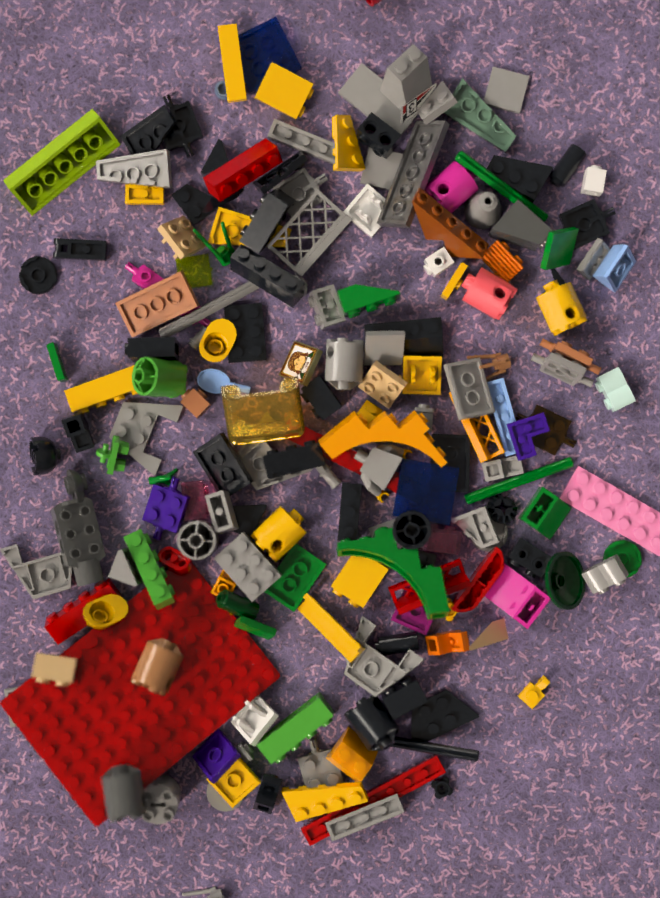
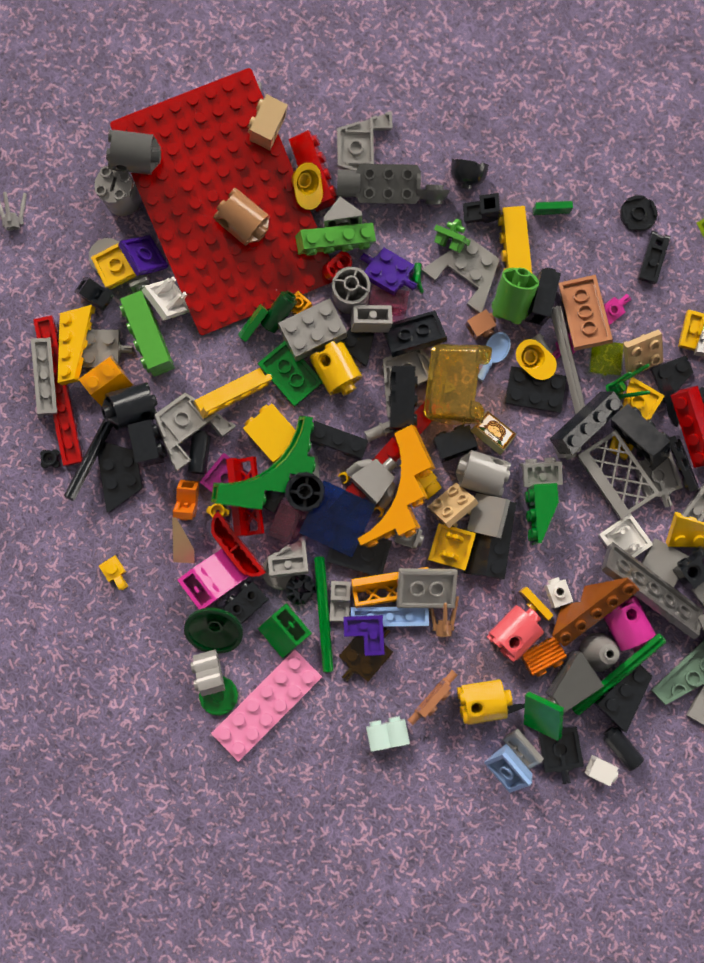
camera: 100 degrees right, 5 degrees down
(562, 369) = (421, 686): light grey plate -> none

